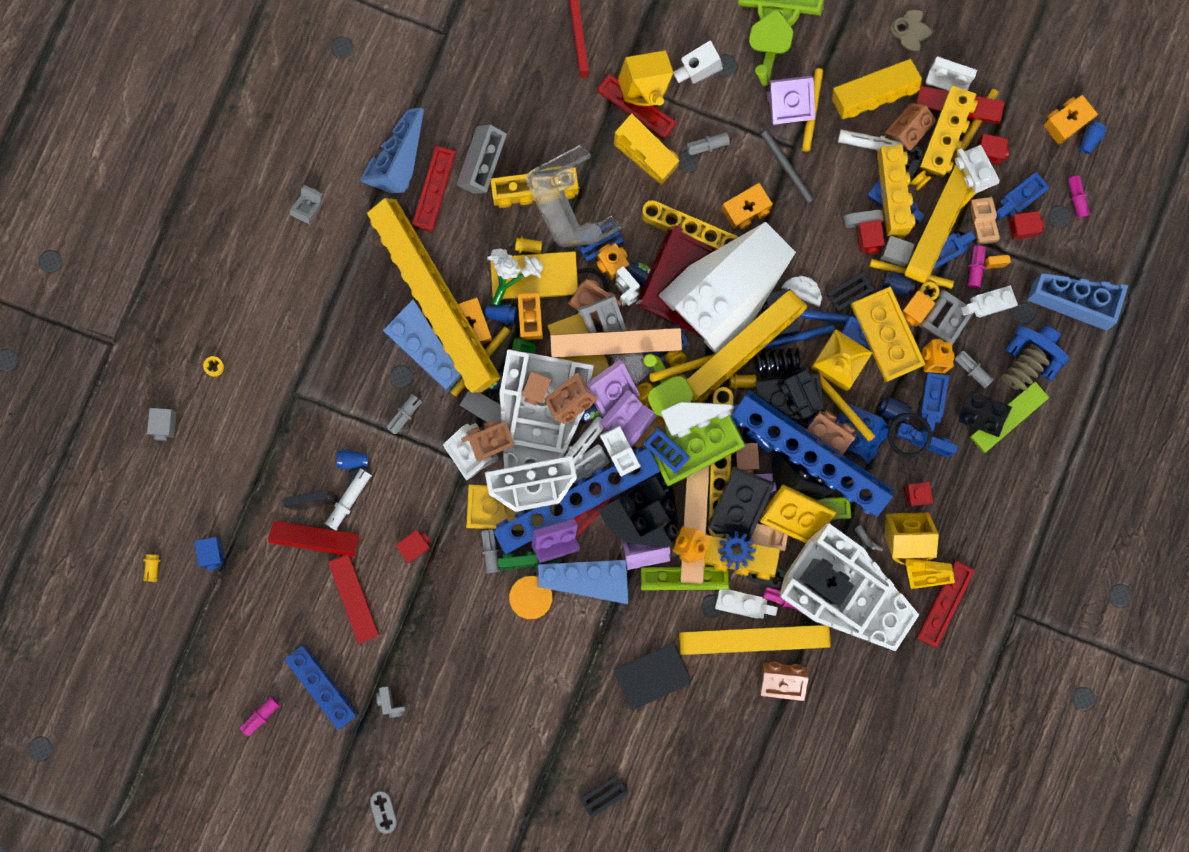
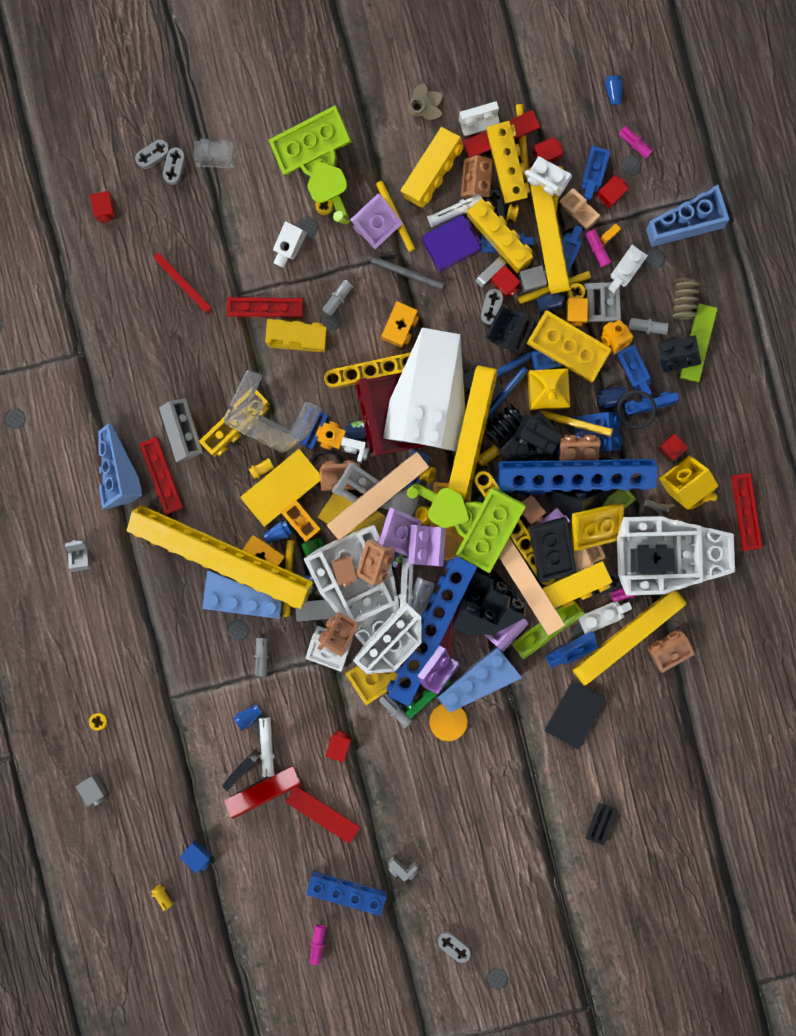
camera: 30 degrees left, 5 degrees up
(508, 267) = (261, 499): white plant -> none
(620, 450) = (437, 573): white slope -> none
(645, 78) = (258, 283): yellow piece -> none
(672, 444) = (471, 541): blue slope -> none
(679, 368) = (438, 479): yellow bar -> none
(687, 415) = (468, 513): white slope -> none
(691, 545) = (538, 605): light orange brick -> none
(693, 615) = (573, 650): none -> blue hinge
(745, 549) = (569, 590): blue gear -> none
(751, 61) = (324, 212): none -> yellow bush
(805, 289) = (483, 355): white tile -> none
(842, 276) = (506, 327): none -> black bracket
(845, 254) = (487, 305): none -> light grey beam
(846, 168) = (451, 243): none -> dark purple brick
(928, 573) = (720, 500): yellow wing -> none
(1045, 341) = (684, 268): blue connector -> none
(1080, 113) = (595, 78): light orange brick -> none

